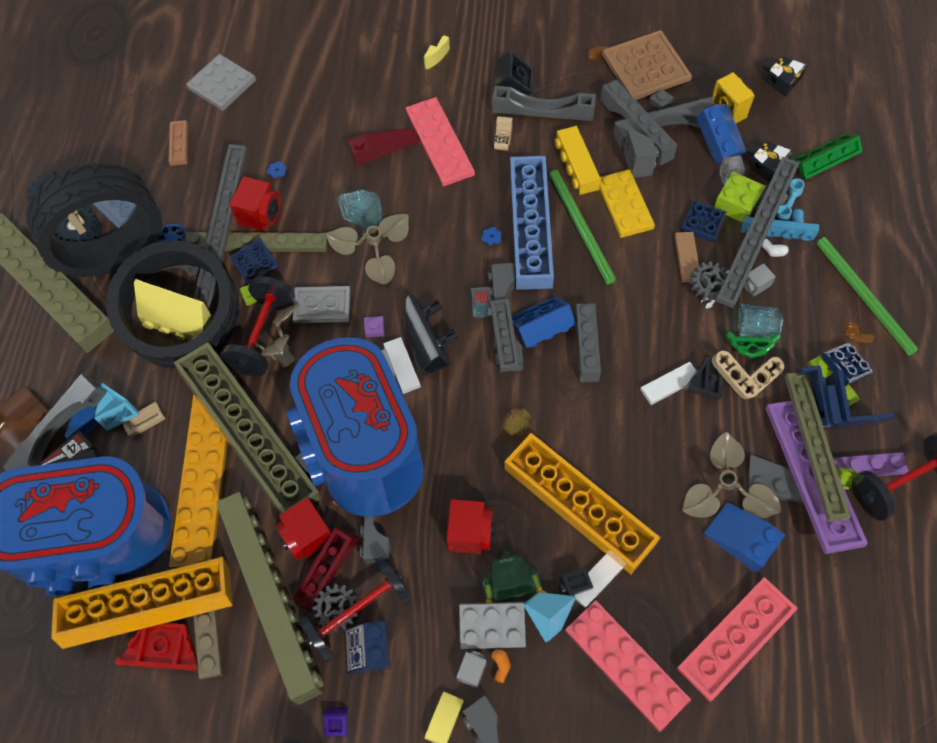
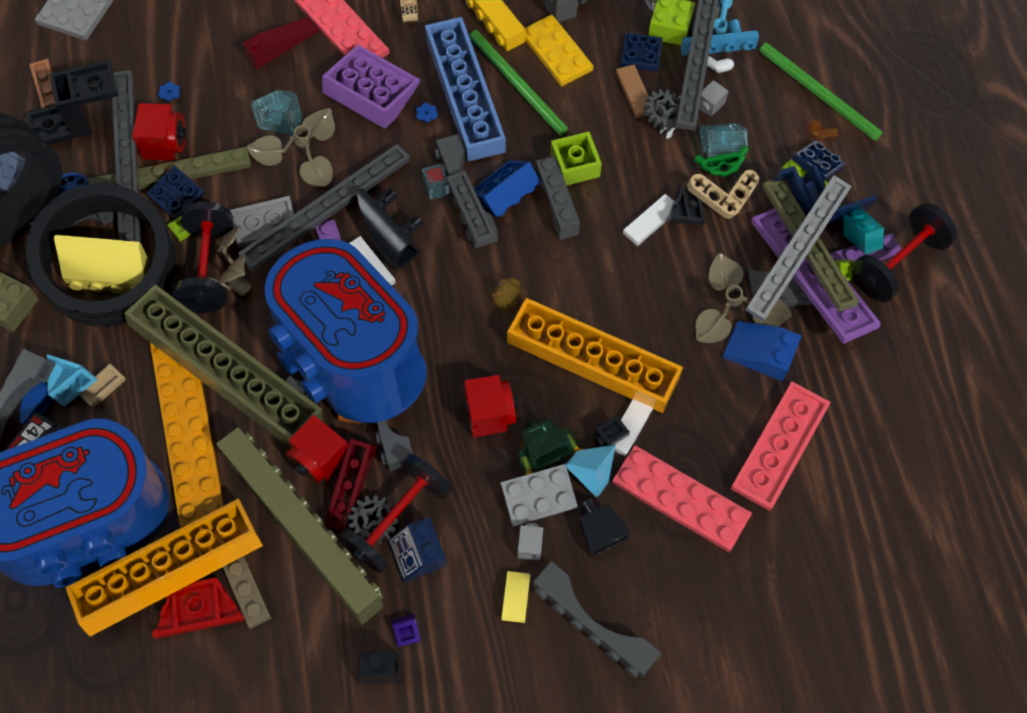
camera: 20 degrees left, 0 degrees up
(189, 164) = (71, 96): none -> black bracket
(375, 303) = (323, 207): none -> dark grey plate
(447, 201) = (369, 86): none -> medium lavender slope
(503, 664) = (560, 529): orange arm -> none
(541, 674) = (601, 528): none -> black torso
(614, 309) = (577, 158): none -> lime brick
(803, 448) = (798, 248): none -> light grey plate
(873, 445) = (863, 231): none -> teal brick

